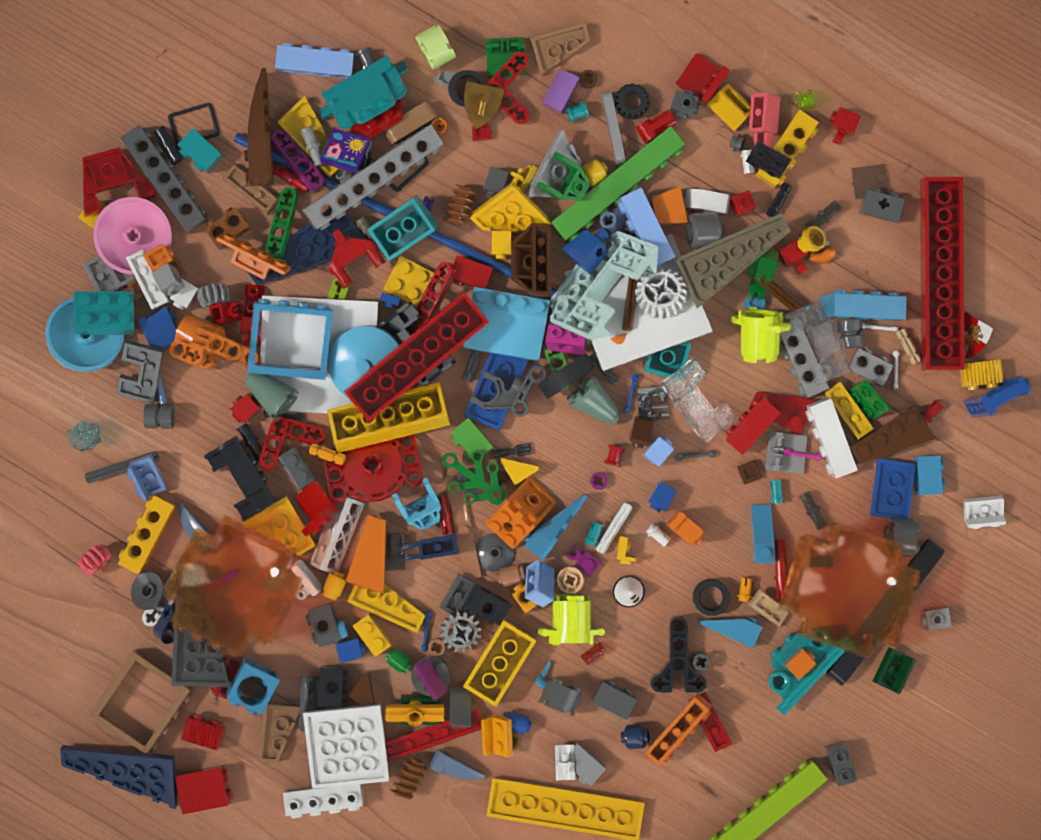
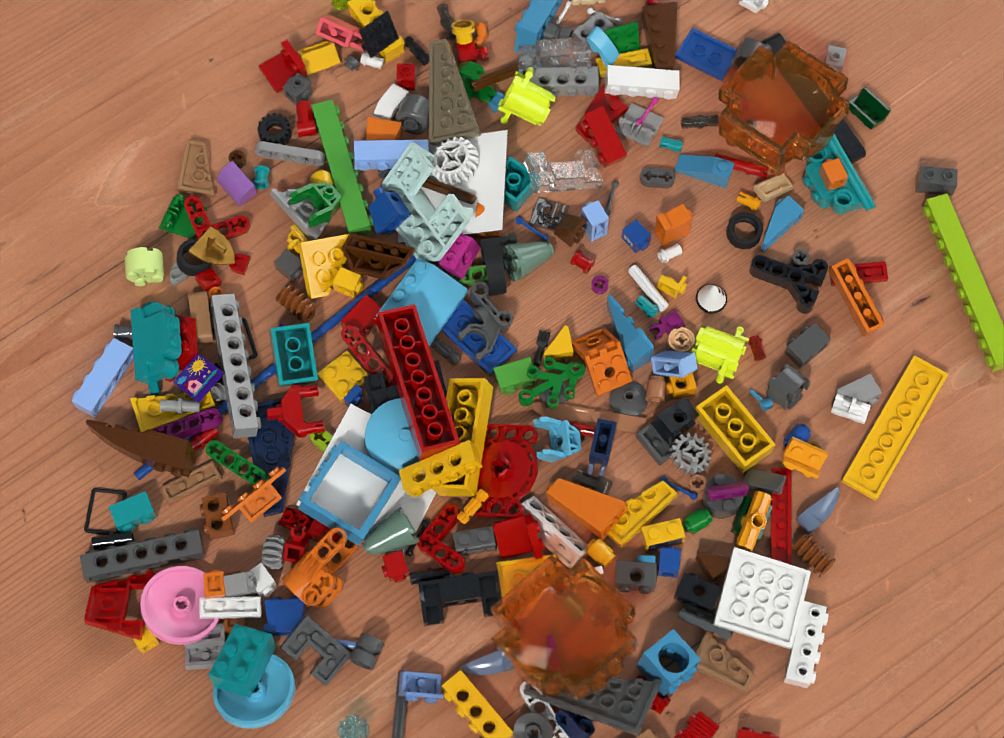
camera: 65 degrees left, 20 degrees down
(329, 389) = (430, 468): none -> yellow brick
(364, 224) = (275, 393): dark tan pin -> none
(450, 111) = (208, 279): none -> red plate
(616, 218) = (369, 179): sand blue piece -> none
(635, 736) = (848, 340): dark blue head -> none
(739, 490) = (657, 178): none -> dark grey beam
(749, 472) = (644, 160): reddish brown tile -> none
(850, 385) = (602, 44): none -> medium azure slope
(929, 475) = (706, 21): dark azure piece -> none

